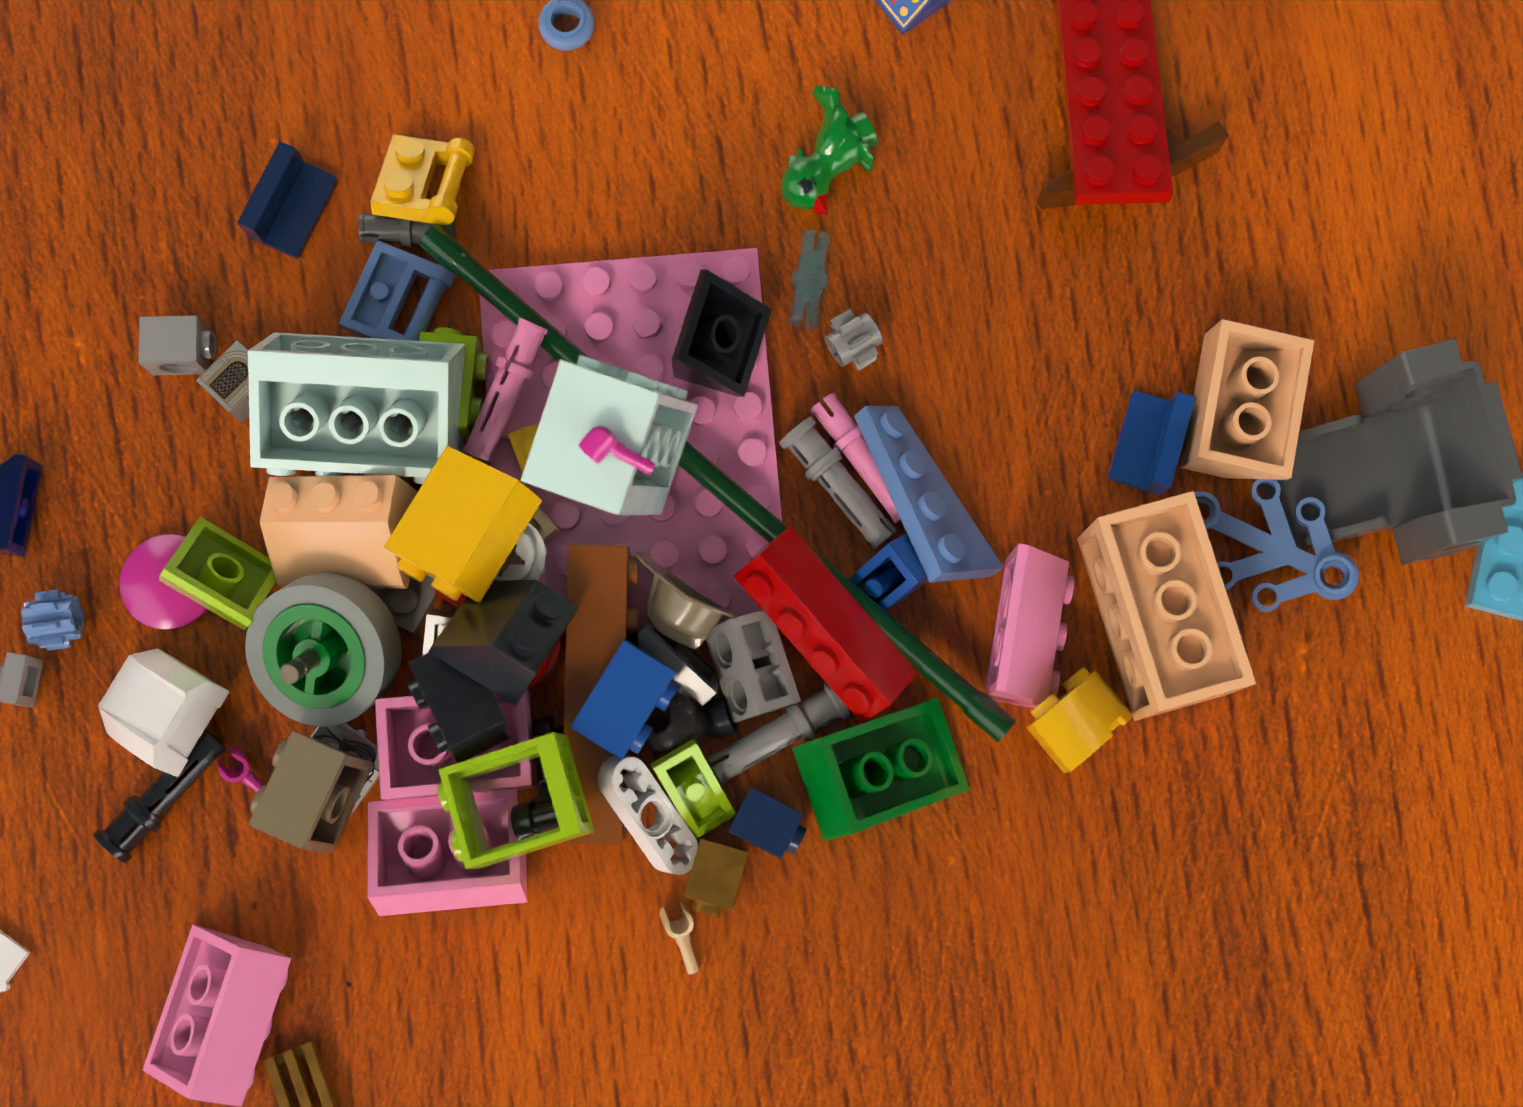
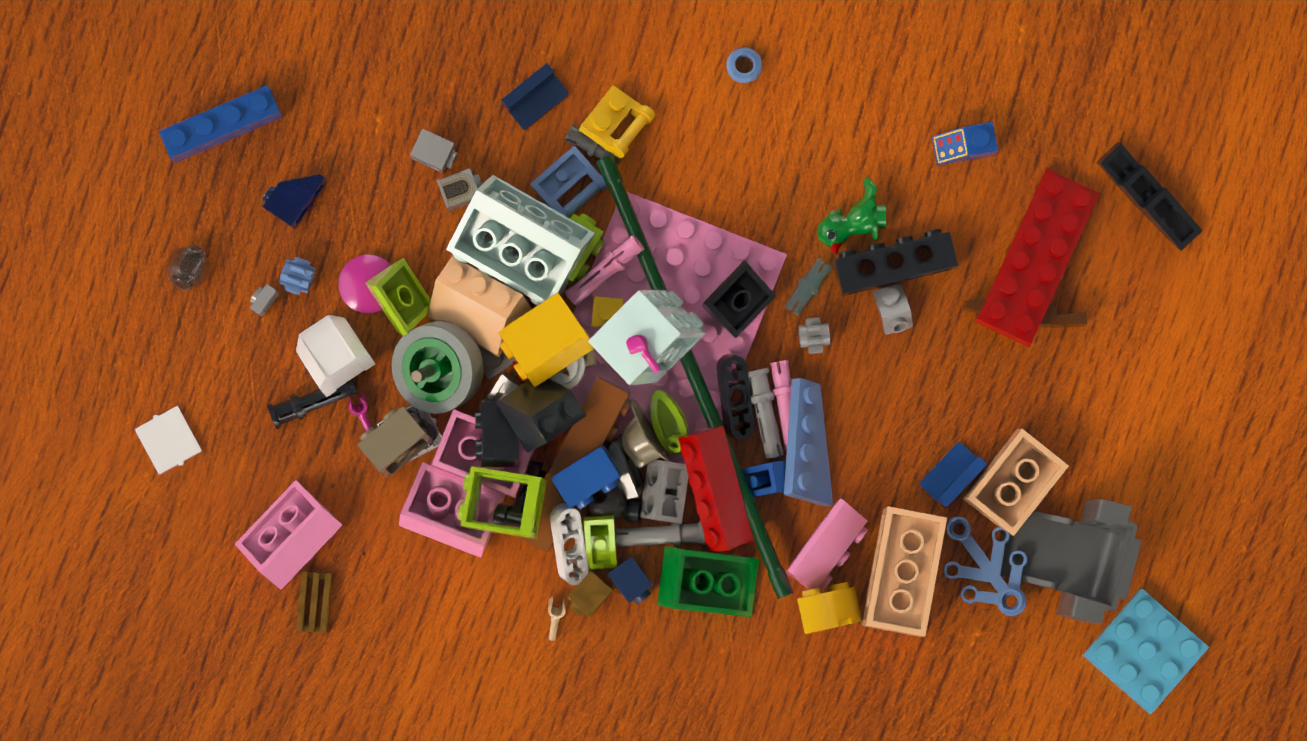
camera: 30 degrees right, 5 degrees up
(705, 562) = (667, 421): none -> lime arm
(766, 475) = (725, 390): none -> black beam
(870, 239) = (852, 281): none -> black brick
(946, 250) = (893, 309): none -> light grey bracket

